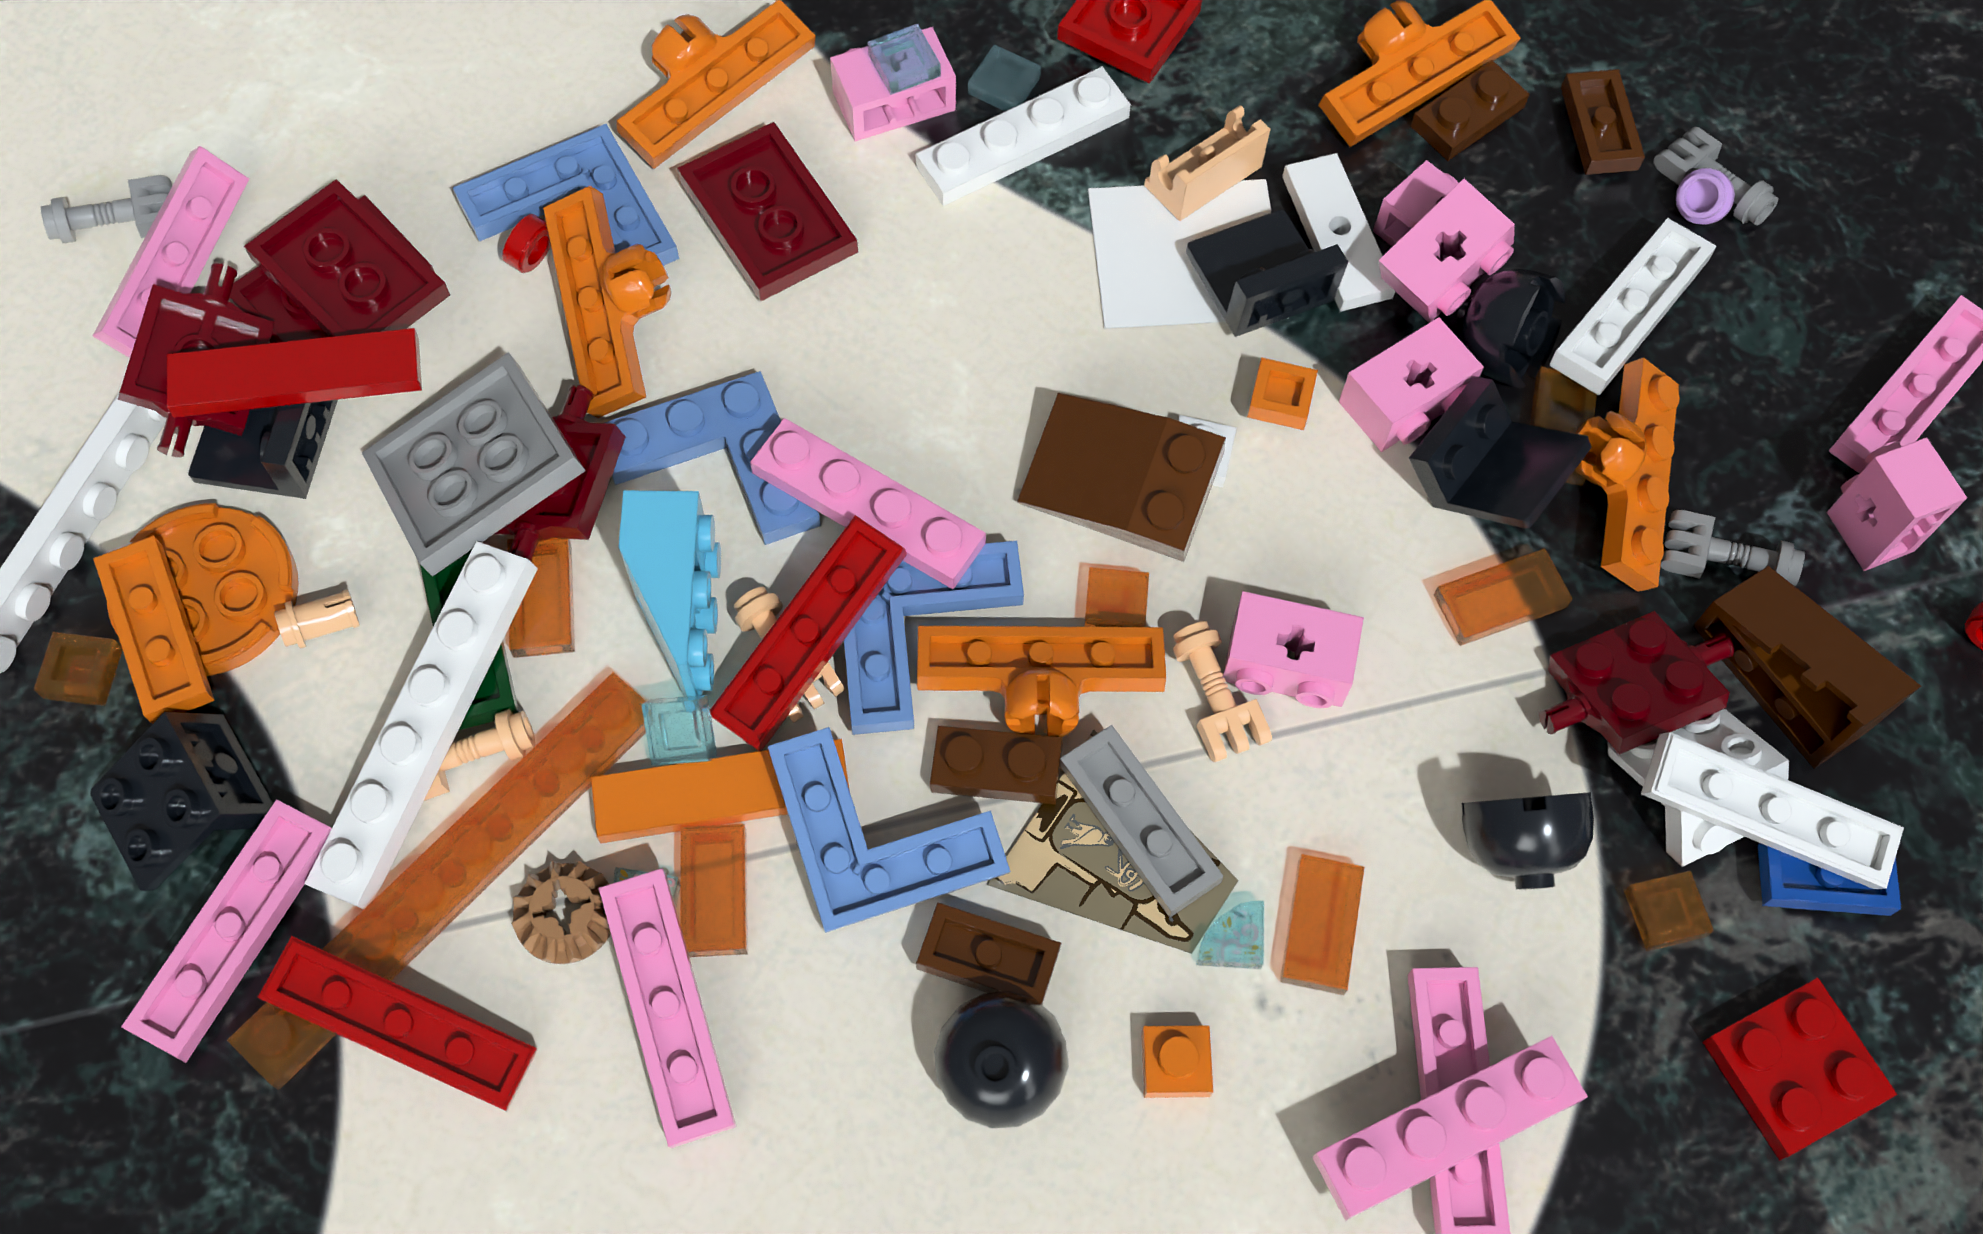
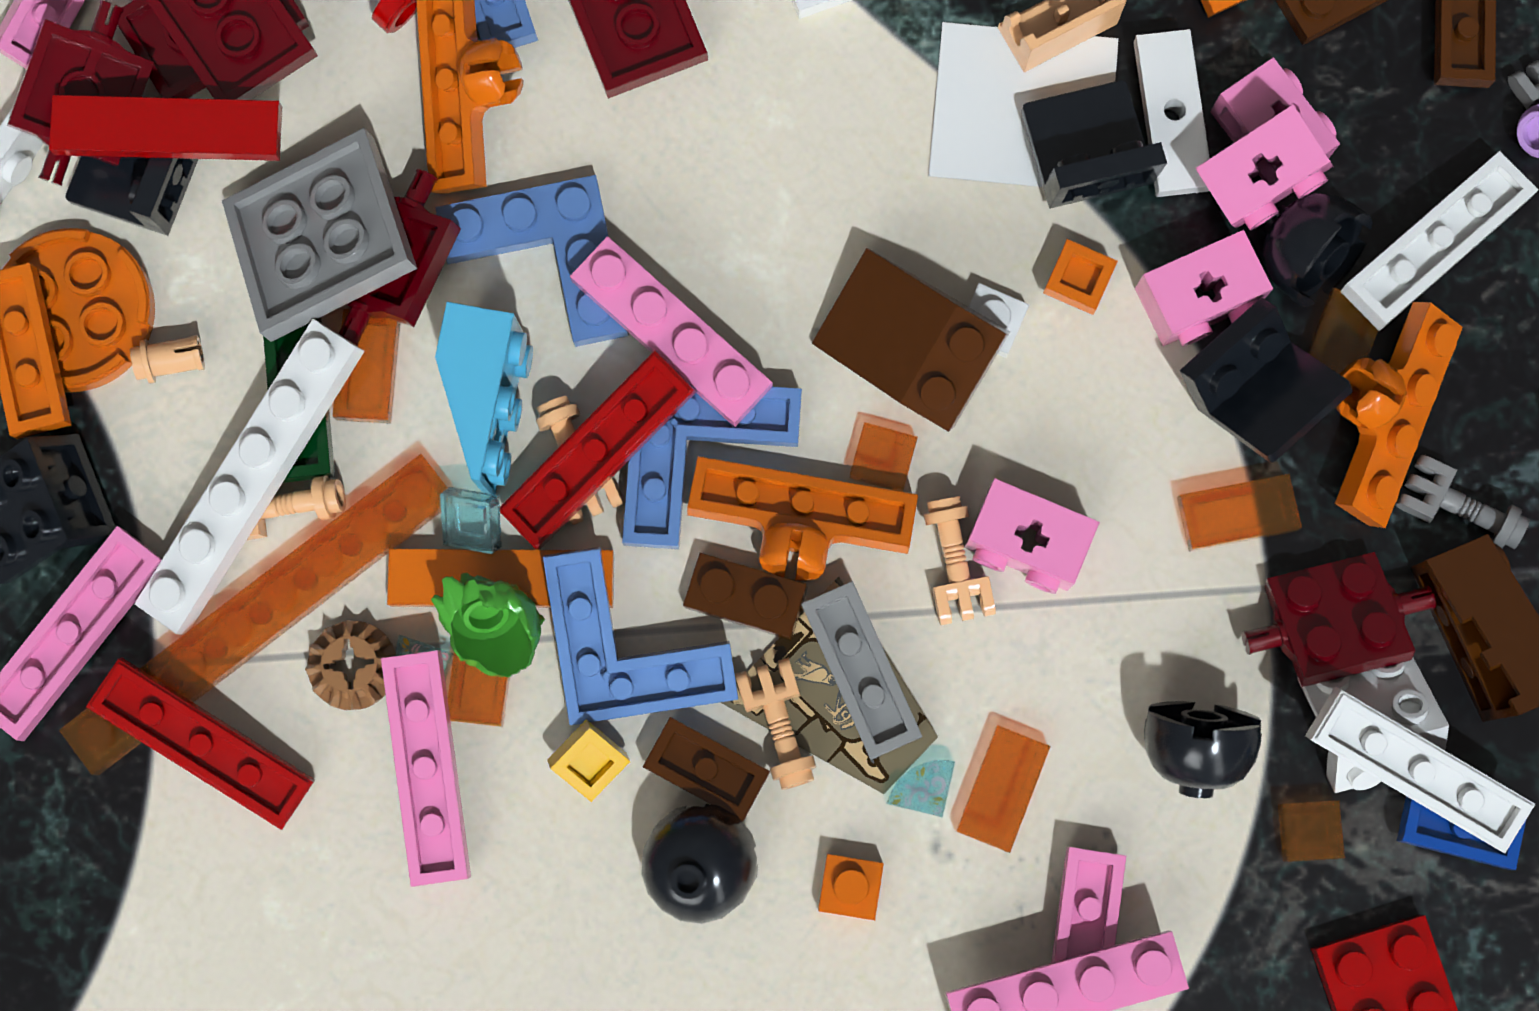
camera: 15 degrees right, 15 degrees up
(718, 827) = (489, 623): none -> bright green hair
(853, 967) = (588, 760): none -> yellow plate
(1086, 938) = (793, 768): none -> light nougat hinge

